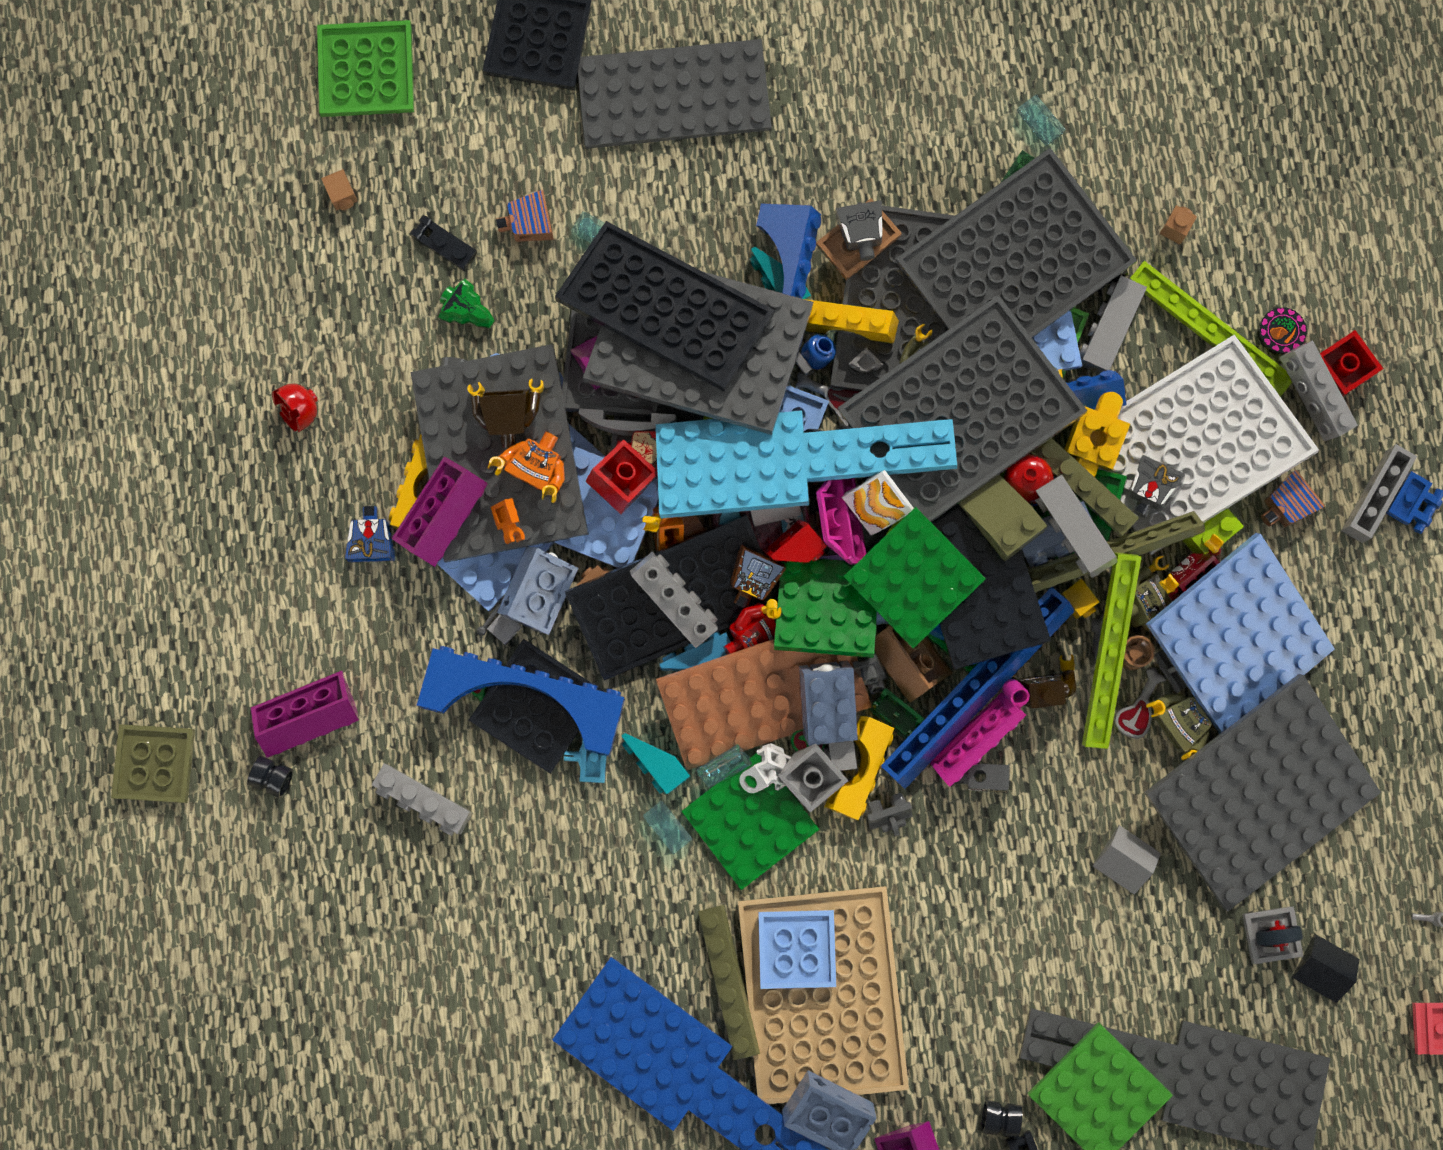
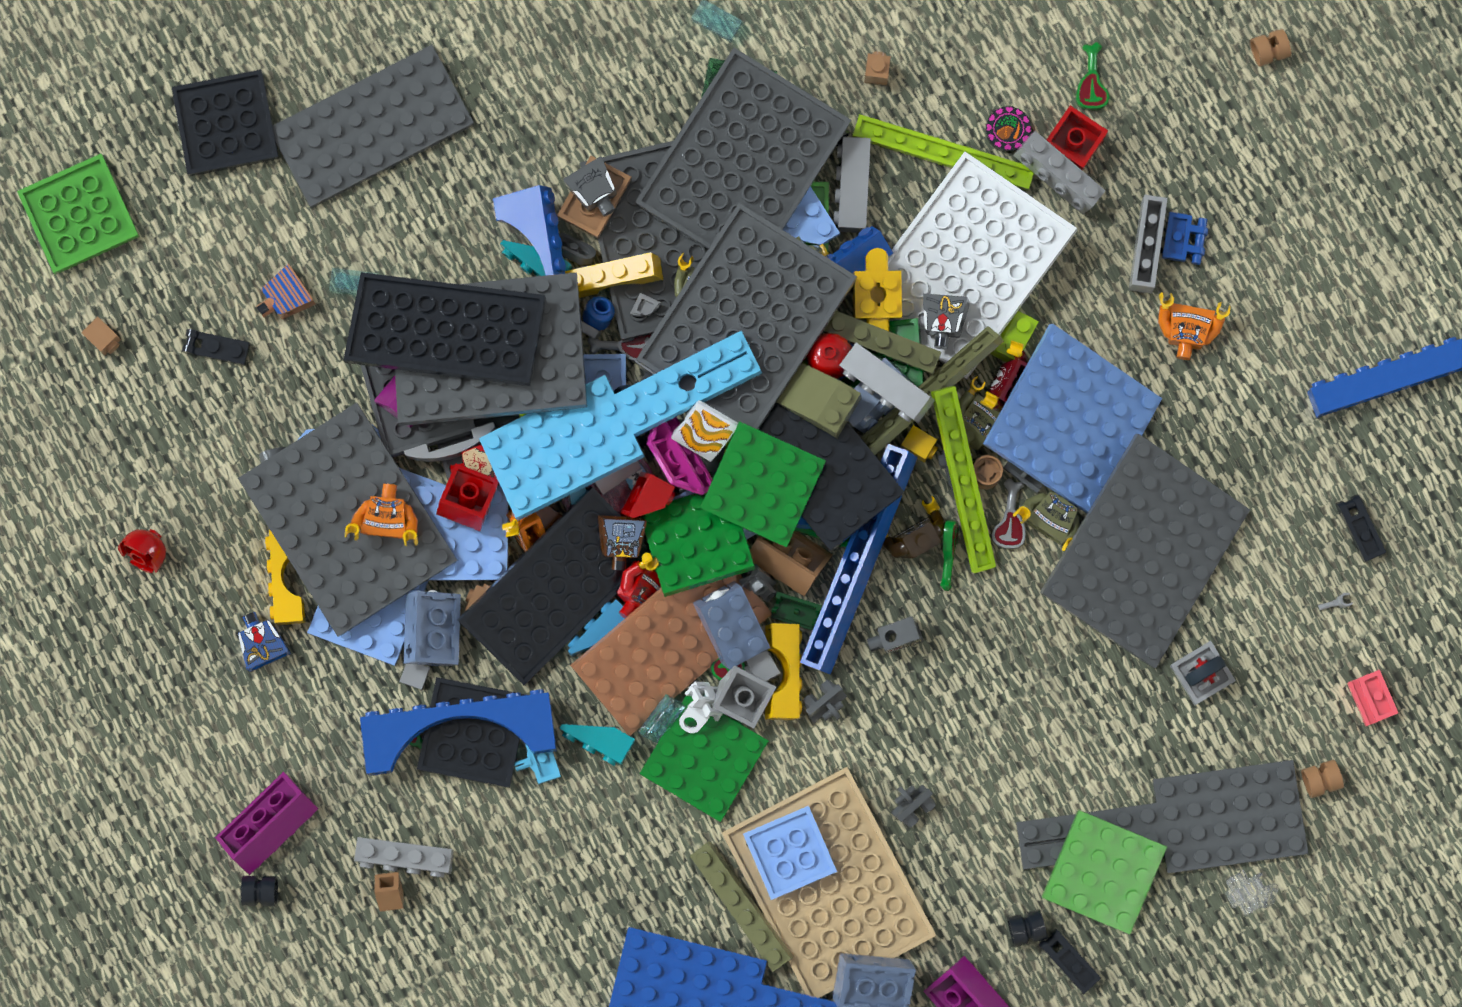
camera: 20 degrees left, 0 degrees up
(153, 763) = (148, 922): olive plate -> none
(393, 828) = (389, 891): none -> medium nougat brick
(439, 511) = (316, 592): magenta slope -> none
(464, 306) = (259, 398): green rock -> none
(482, 629) = (395, 685): dark grey hinge -> none
(505, 411) = (340, 480): dark brown torso -> none
(506, 519) = (379, 576): orange plate -> none
(667, 827) = (633, 793): clear light blue plate -> none
(674, 599) = (558, 588): light grey brick -> none
(821, 284) = (577, 250): none -> dark grey plate
(935, 945) = (909, 801): none -> dark grey hips
(982, 733) = (878, 597): dark pink hinge -> none
(1070, 710) = (950, 540): none -> green piece
(1127, 860) = (1050, 658): light grey slope -> none
(1291, 501) = (1074, 282): torso -> none
(1327, 969) = (1261, 683): black slope -> none
(1357, 1089) = (1323, 778): none -> medium nougat wheel
(1376, 326) = (1090, 92): none -> green piece
(1389, 589) = (1189, 326): none -> orange torso

